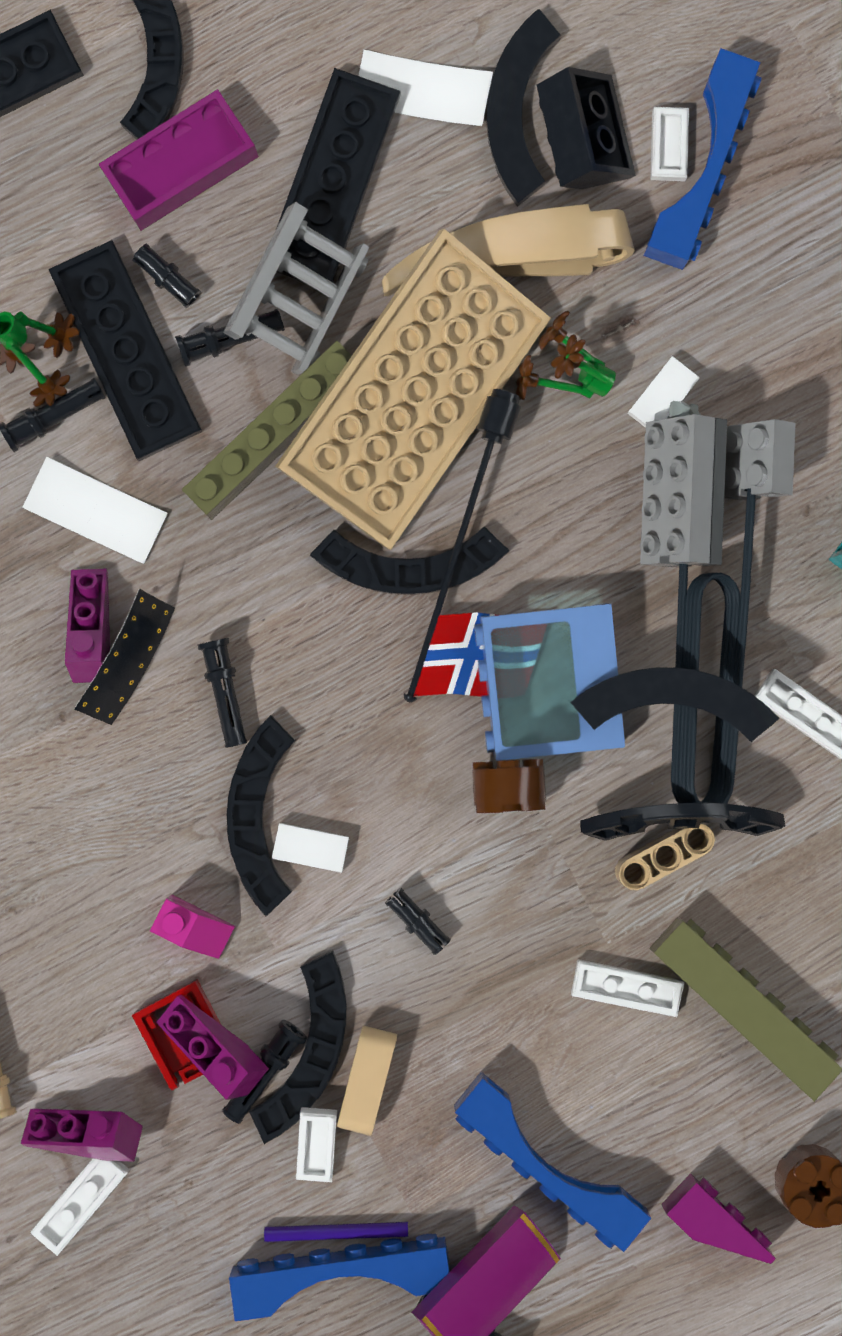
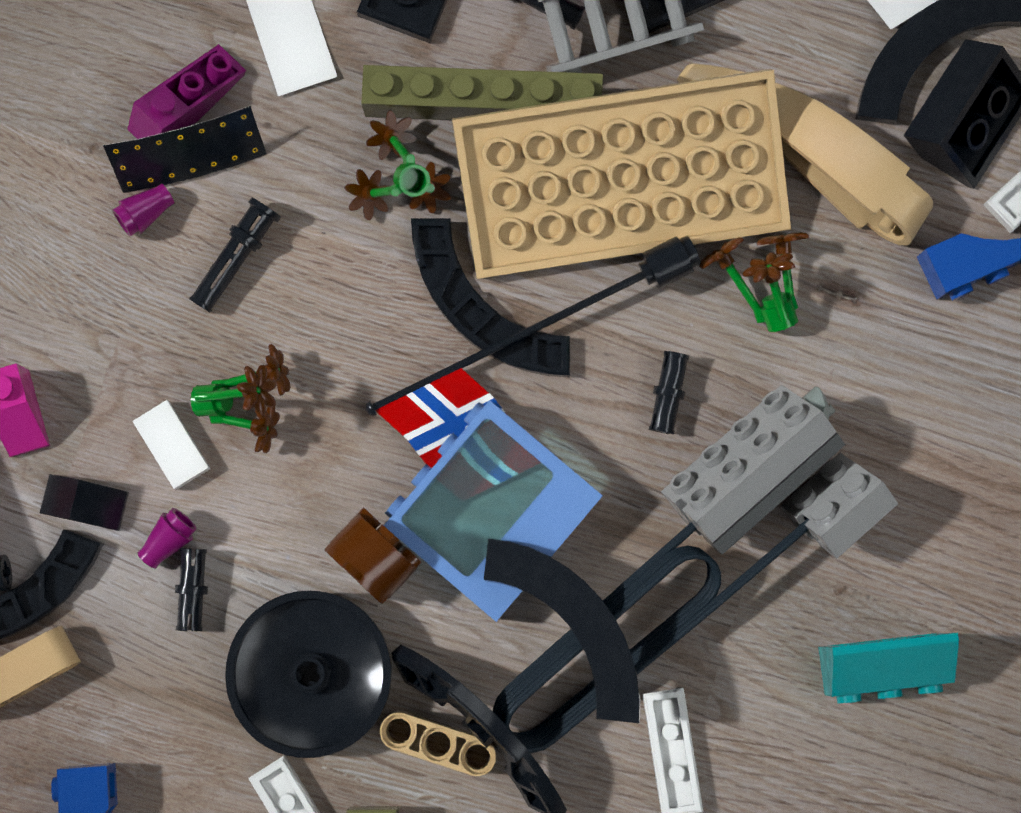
camera: 50 degrees right, 5 degrees down
(137, 722) = (141, 210): none -> magenta cone
(246, 811) = (148, 369): black tile -> none
(288, 531) = (408, 177): none -> reddish brown plant
(294, 938) = (84, 502): none -> black slope
(310, 790) = (254, 386): none -> plant
(369, 905) = (167, 537): none -> magenta cone
(544, 896) = (308, 674): none -> black dish
(581, 498) = (669, 392): none -> black pin
(669, 385) = (835, 377): white tile -> none

